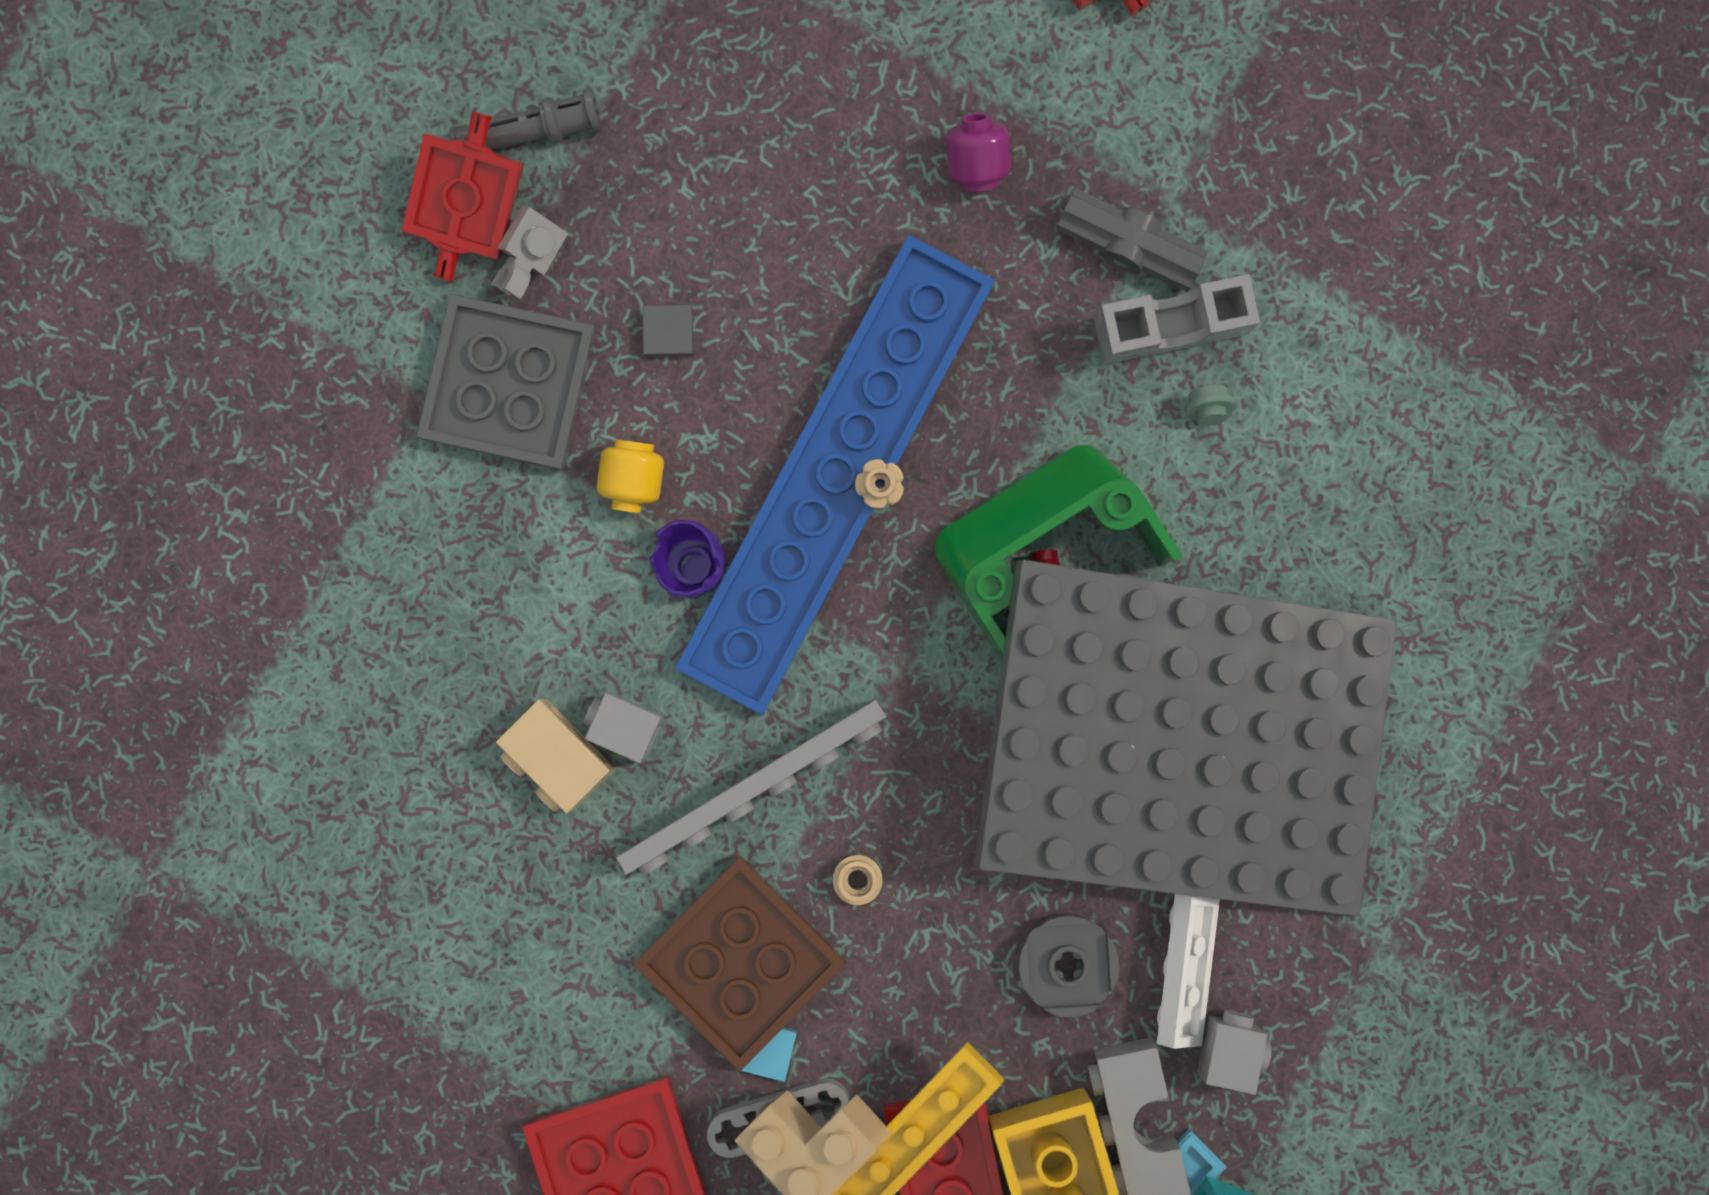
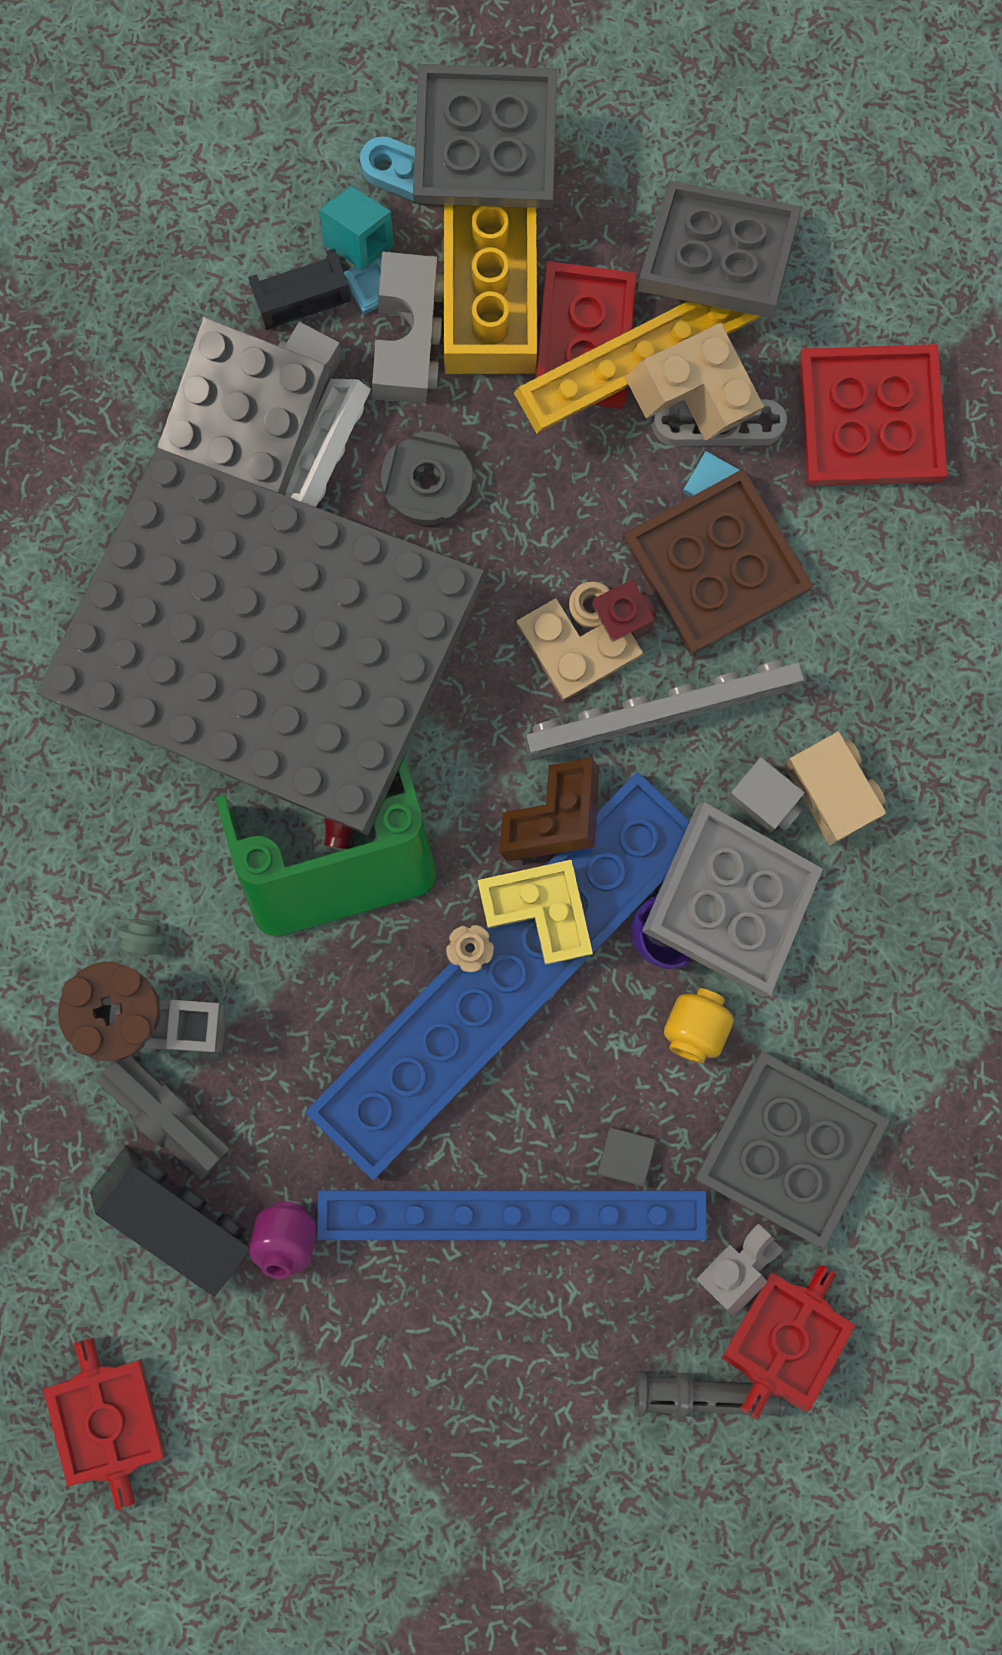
camera: 165 degrees left, 5 degrees down
(629, 609) = (733, 900): none -> light grey plate
(763, 242) = (511, 1215): none -> blue plate
(818, 556) = (547, 896): none -> light yellow plate
(820, 644) = (561, 824): none -> reddish brown plate
(821, 877) = (625, 611): none -> dark red bracket
(857, 815) = (572, 660): none -> tan plate
(1096, 138) = (169, 1221): none -> black wedge
(1229, 284) = (132, 1027): none -> reddish brown plate
(1264, 1133) = (301, 291): none -> black hinge
(1283, 984) = (244, 406): none -> plate

